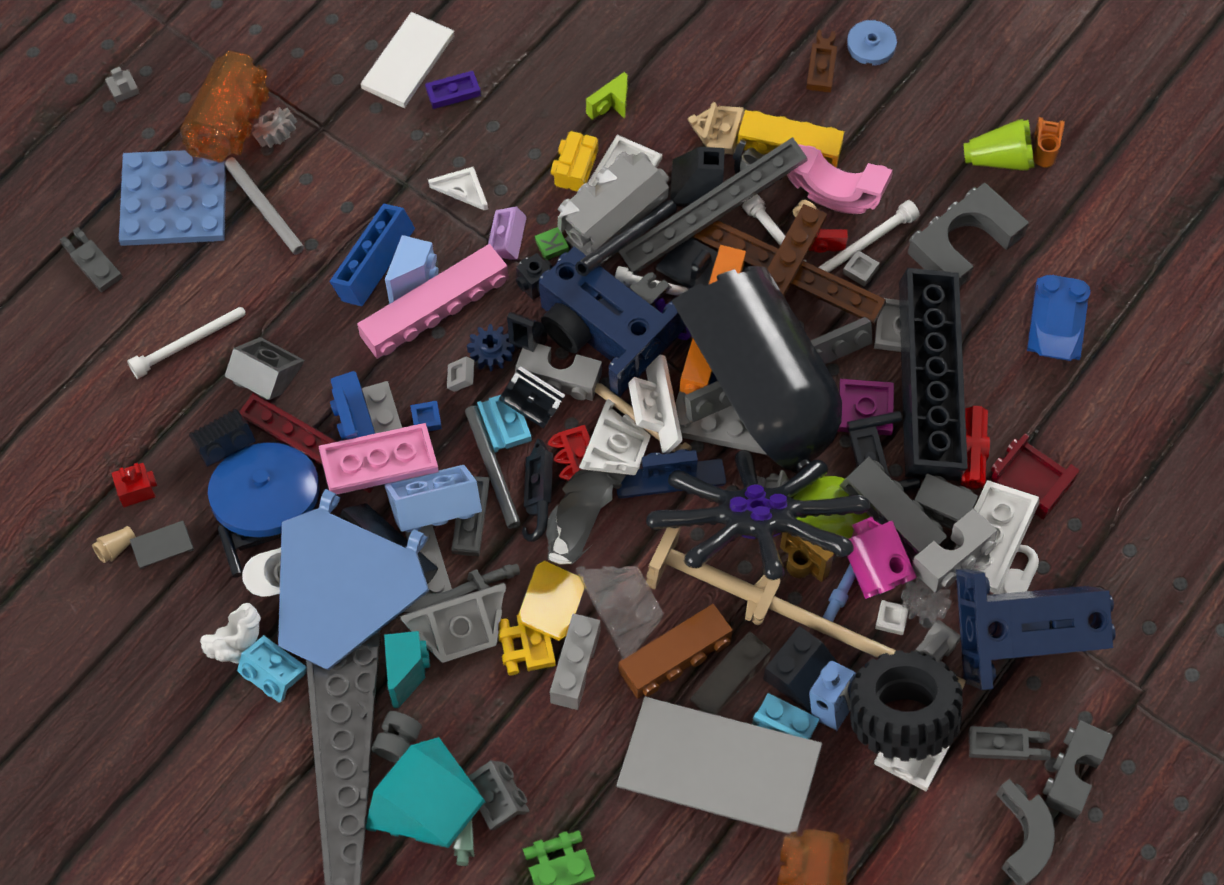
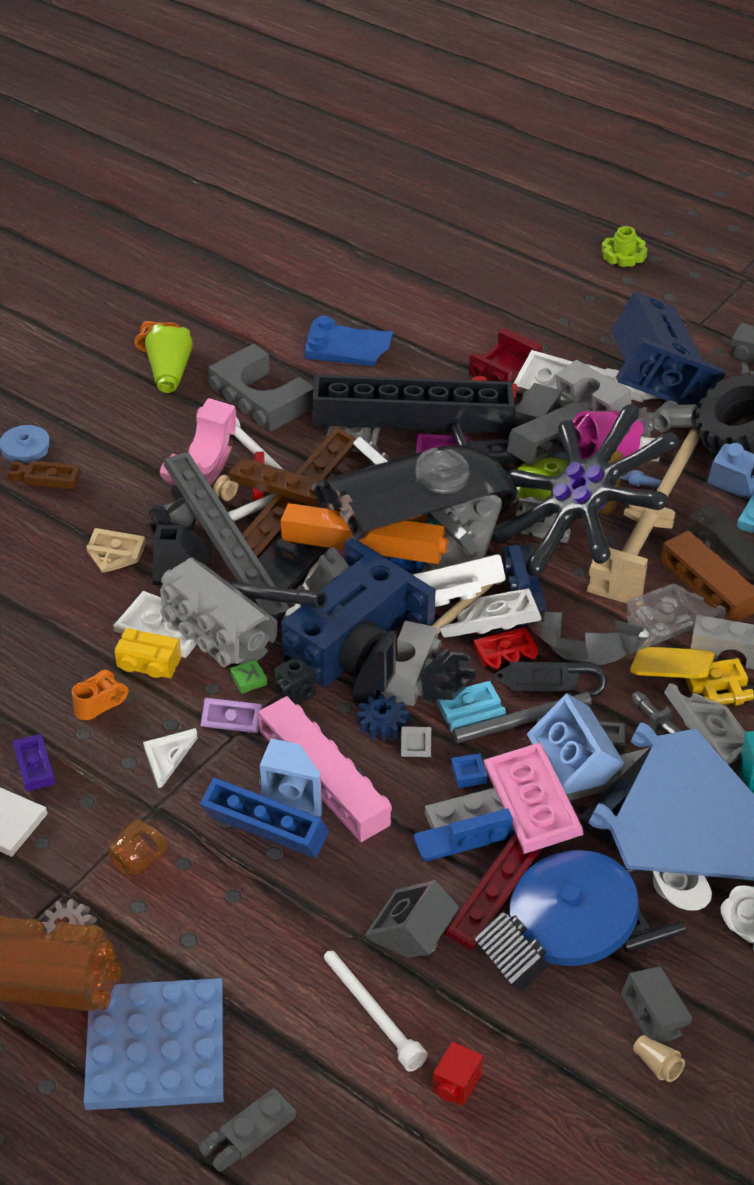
camera: 90 degrees left, 20 degrees down
(114, 396) = (457, 1074): none -> red brick
(134, 484) = (579, 1040): red brick -> none
(264, 206) = (183, 938): light grey piece -> none
(350, 166) = (131, 853): none -> clear orange helmet
(530, 130) = (96, 695): none -> orange piece
(612, 94) = (68, 624): lime slope -> none
(760, 373) = (442, 470): none -> clear tile
(768, 132) = (137, 495): yellow brick -> none
(798, 667) = (698, 490): black slope -> none
(860, 268) = (290, 454): light grey plate -> none

